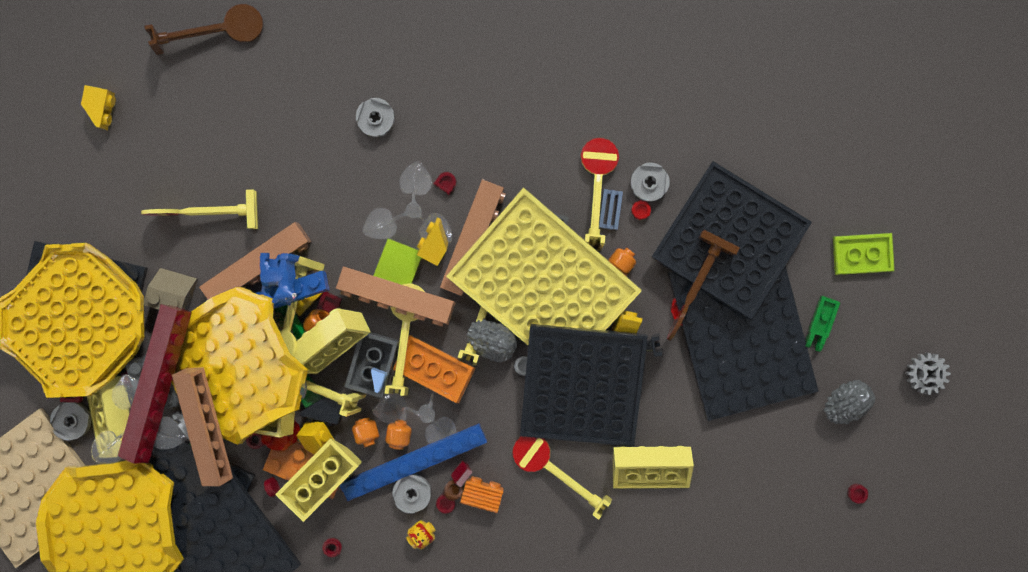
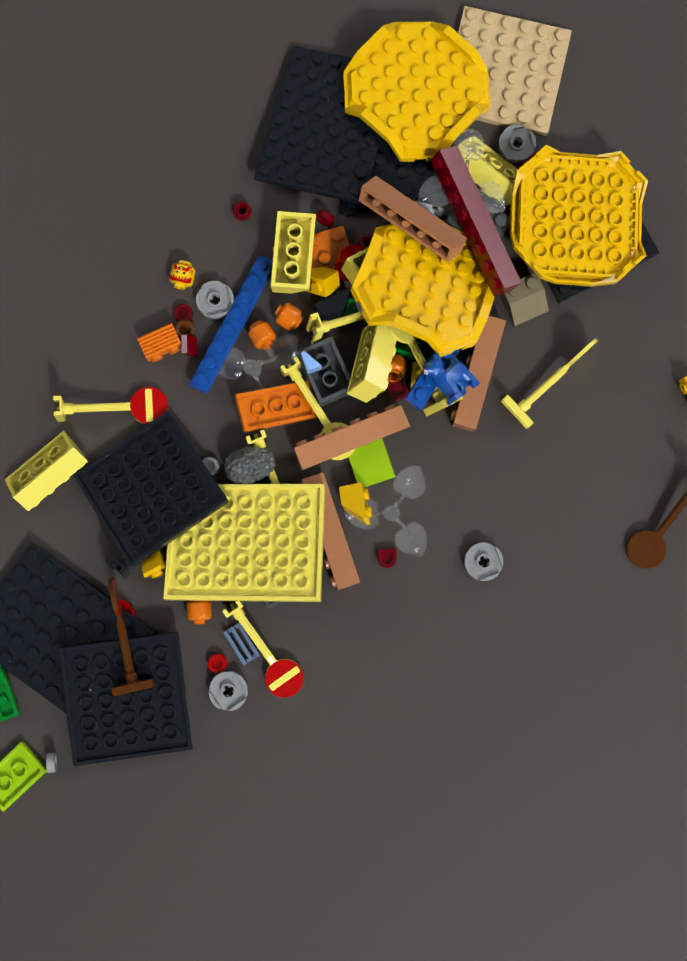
camera: 135 degrees right, 5 degrees down
(826, 239) = (51, 762): none -> light grey tile

